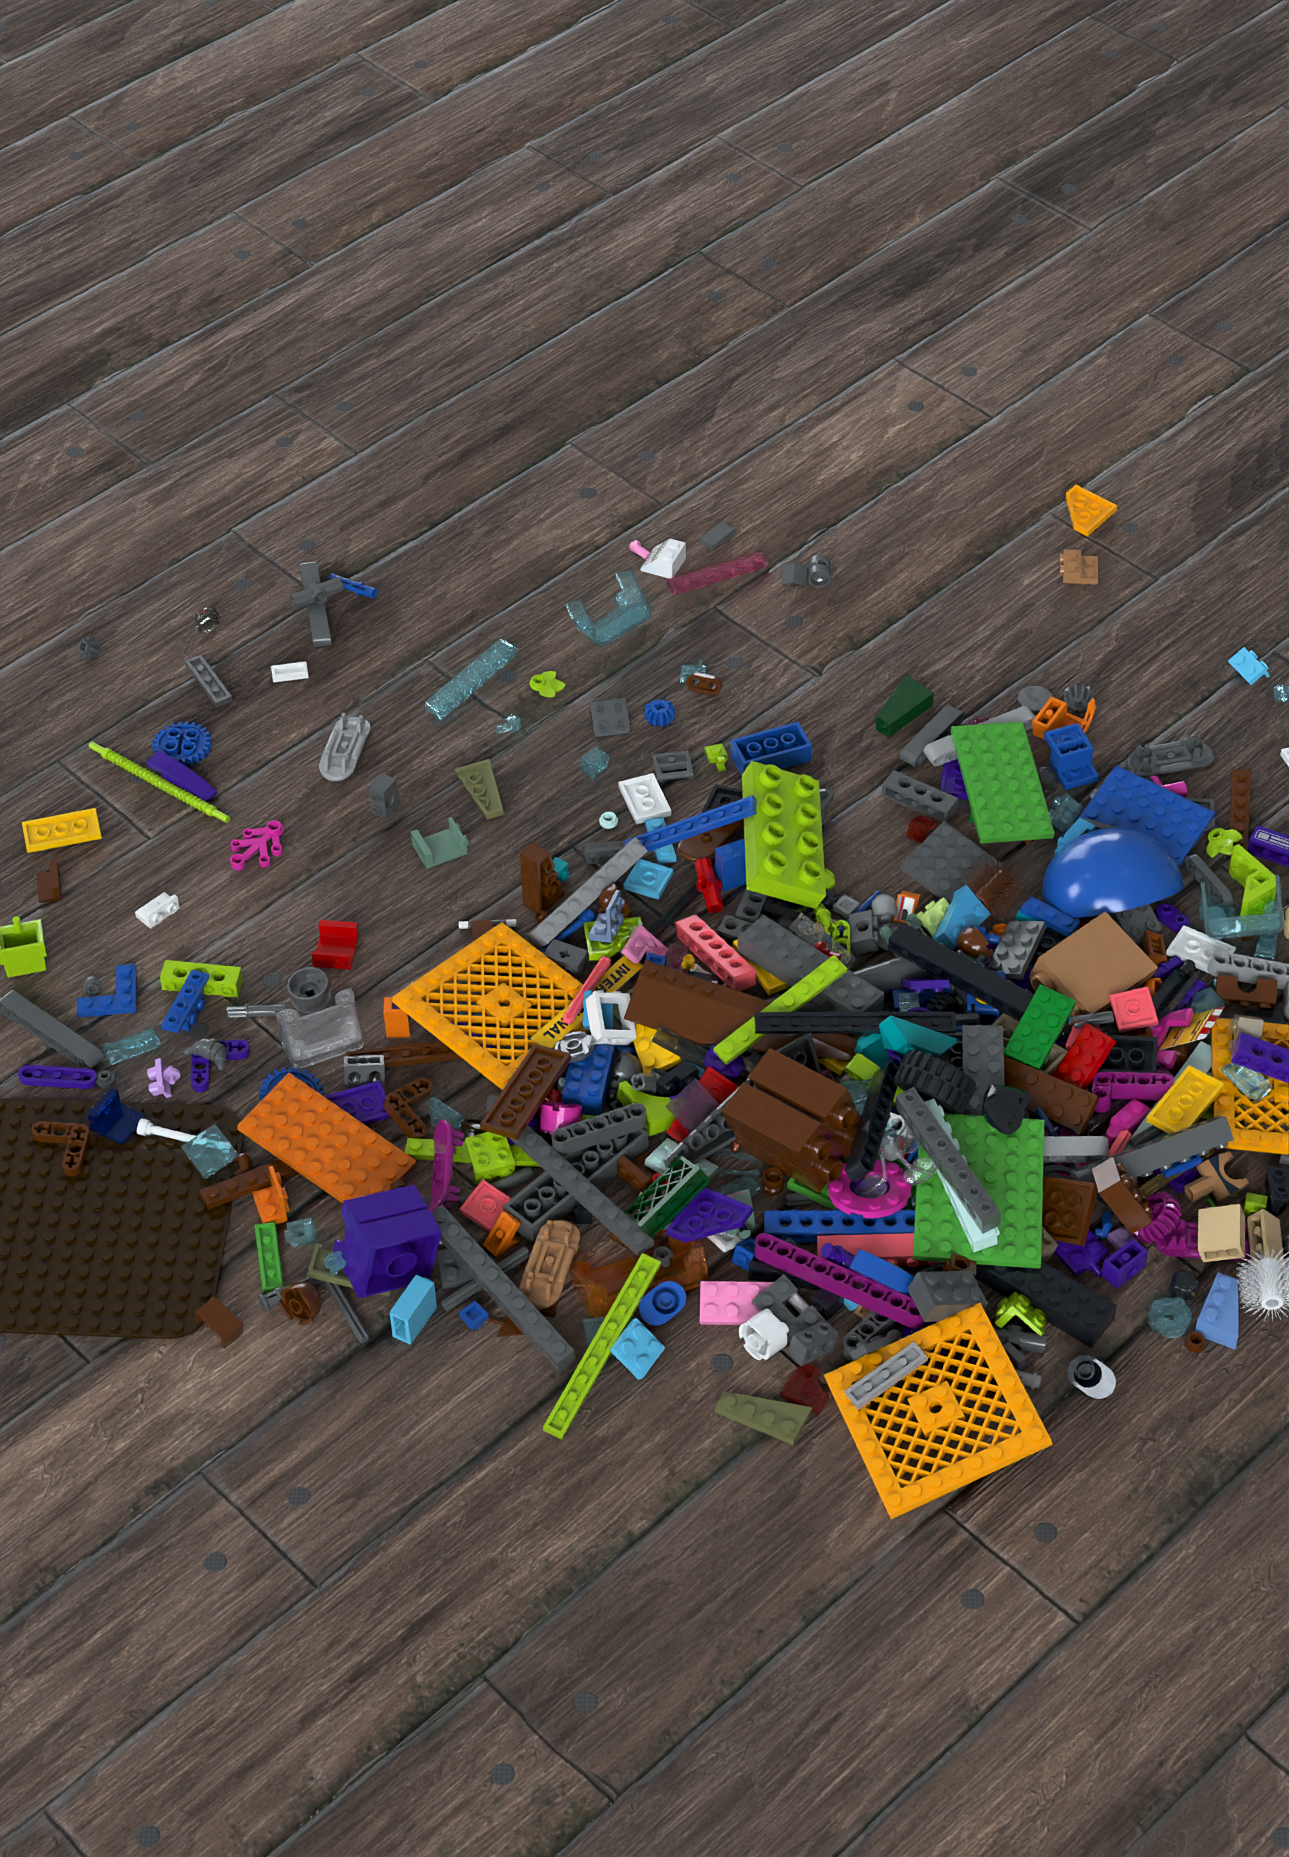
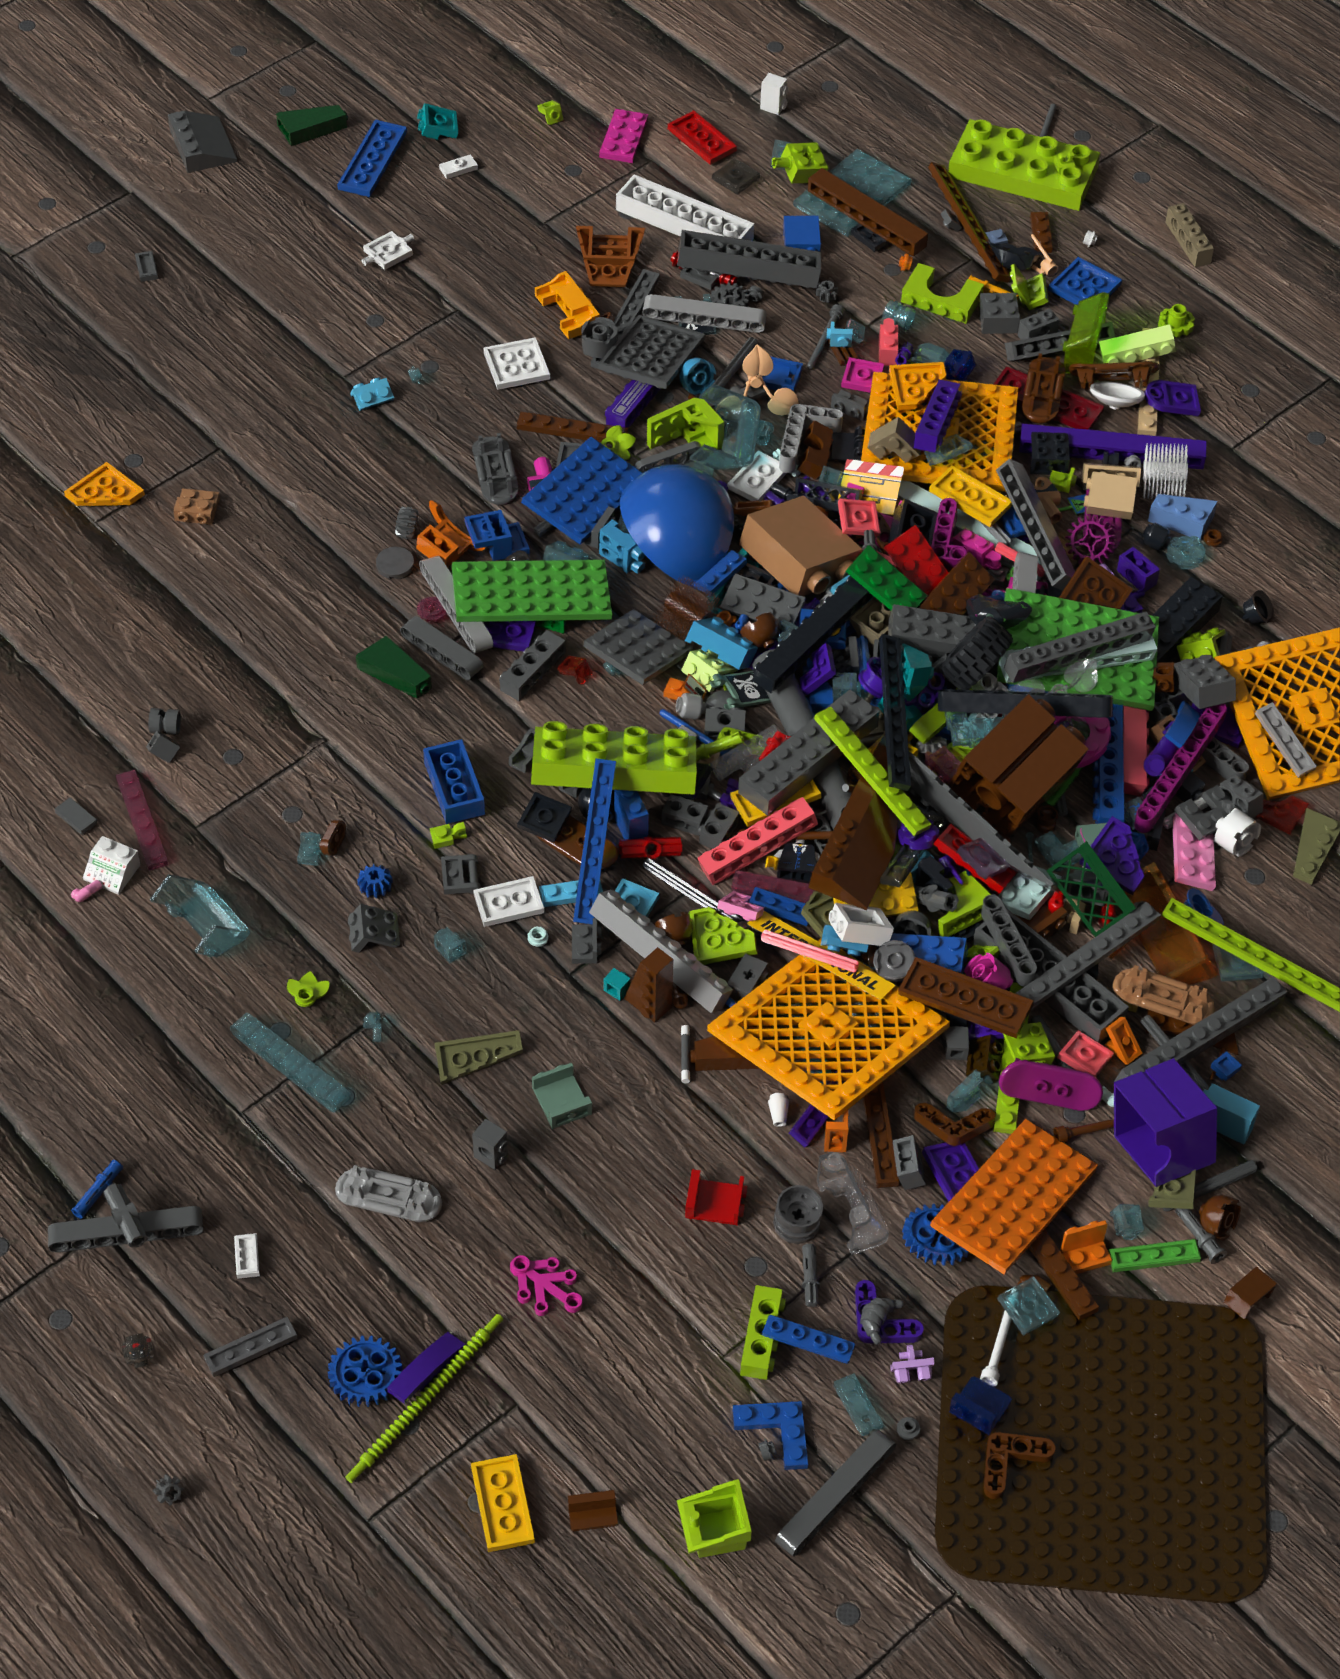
camera: 90 degrees left, 5 degrees up
(57, 1076) = (907, 1478): dark purple plate -> none
(158, 909) = (644, 1386): white bracket -> none
(335, 1262) = (1188, 1177): clear light blue plate -> none
(608, 923) = (712, 928): sand blue bracket -> none
(637, 1348) = (1254, 930): medium azure plate -> none
(876, 1343) = (1247, 749): dark grey hinge -> none
(1122, 1195) = (1090, 544): reddish brown brick -> none

